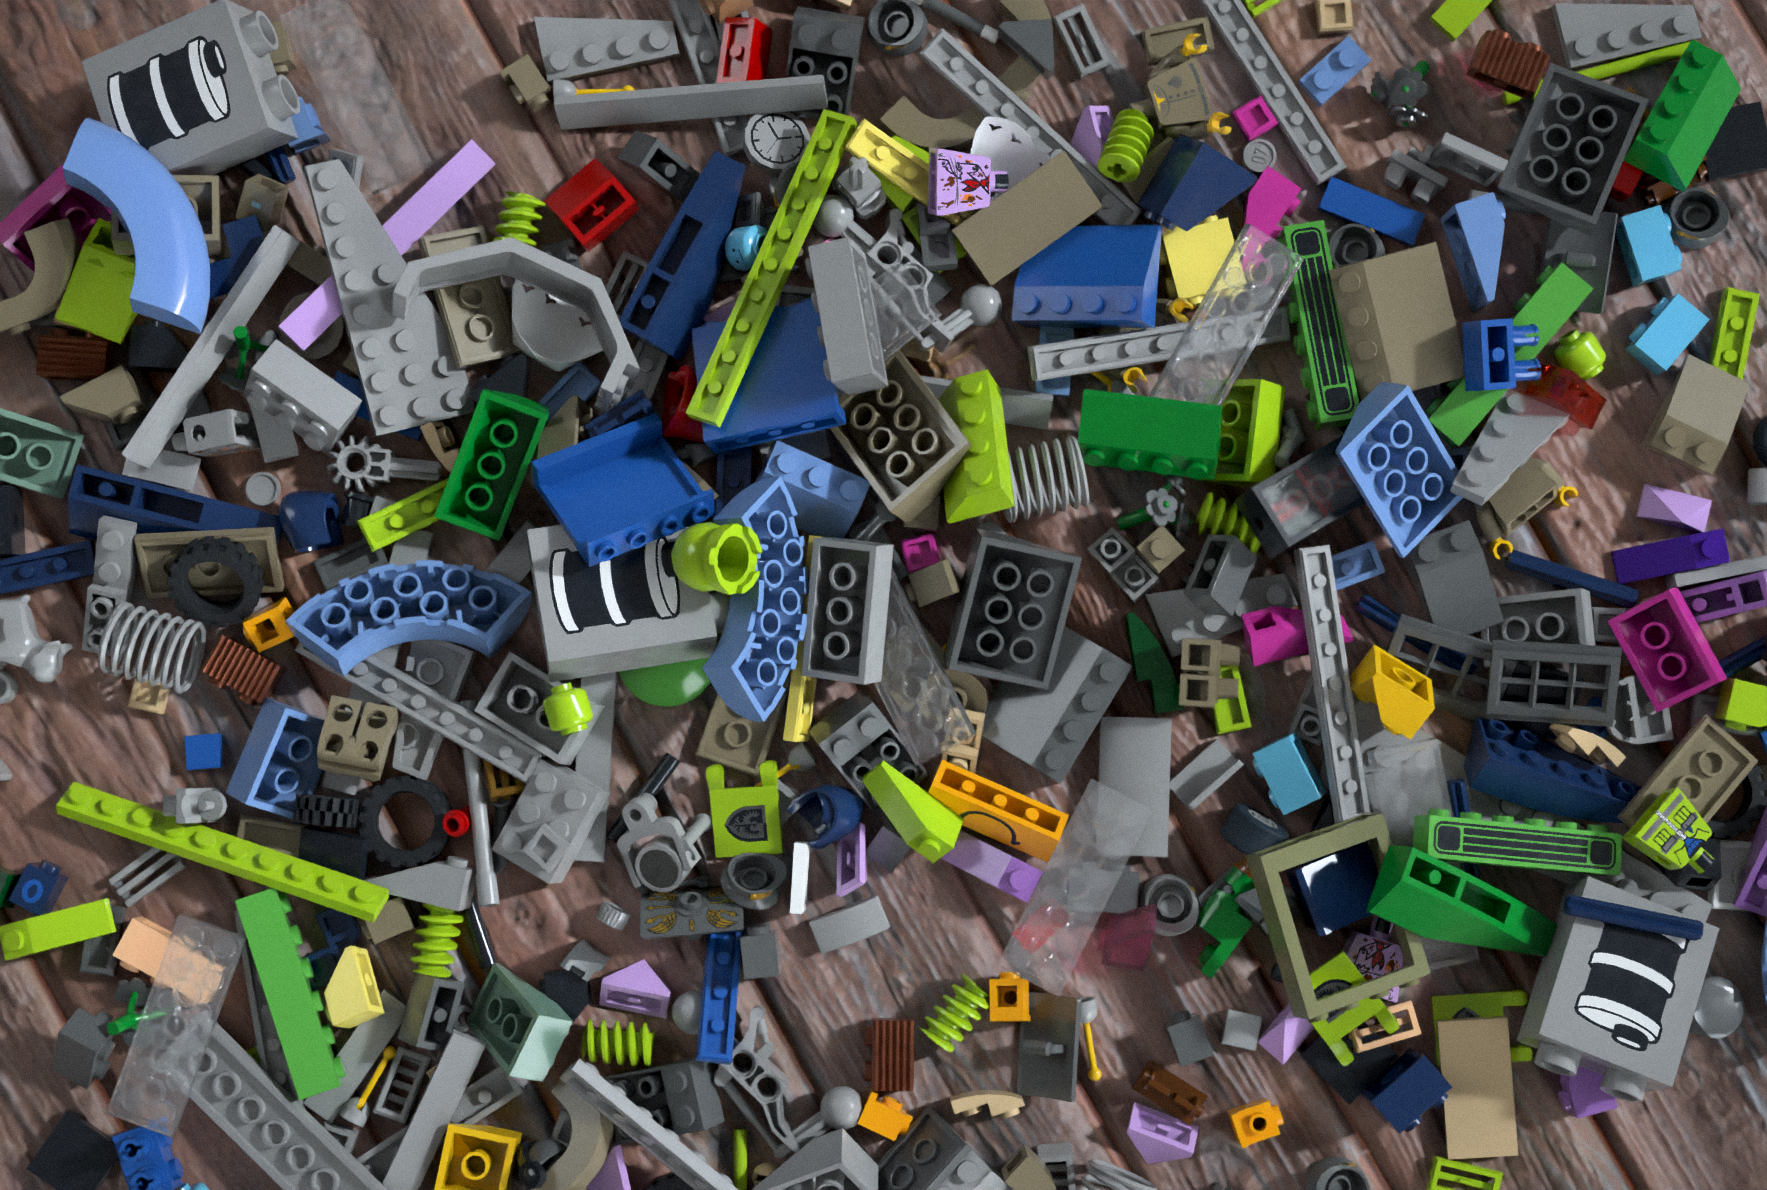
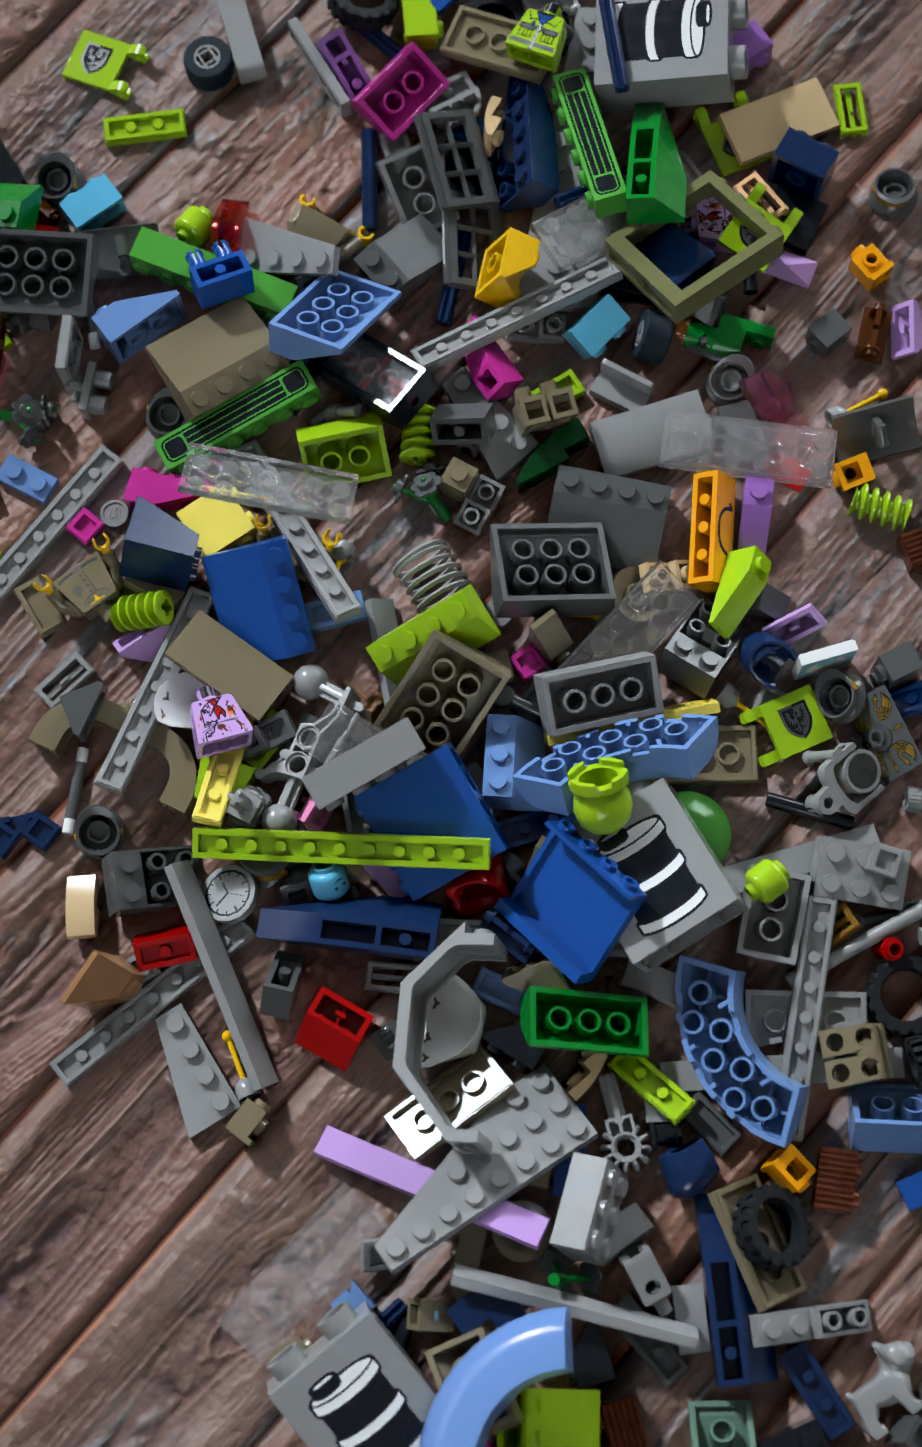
camera: 105 degrees left, 10 degrees down
(108, 398) = (650, 1385): dark tan slope -> none
(133, 626) = (844, 1260): light grey piece -> none
(148, 697) = (886, 1256): tan tile -> none
(263, 489) = (675, 1224): light grey piece -> none
(519, 217) = (373, 1084): lime piece -> none
(849, 924) = (842, 609): light grey slope -> none
(1150, 434) = (371, 510): green slope -> none
(1241, 1029) = (804, 300): light grey tile -> none
(1356, 565) = (414, 330): medium blue plate -> none
(1372, 211) = (132, 415): blue tile -> none
(1666, 334) = (157, 171): medium azure brick -> none
(1670, 556) = (326, 114): dark purple slope -> none
(1674, 508) = (288, 127): lavender slope -> none
(1697, 416) = (213, 129): dark tan slope -> none

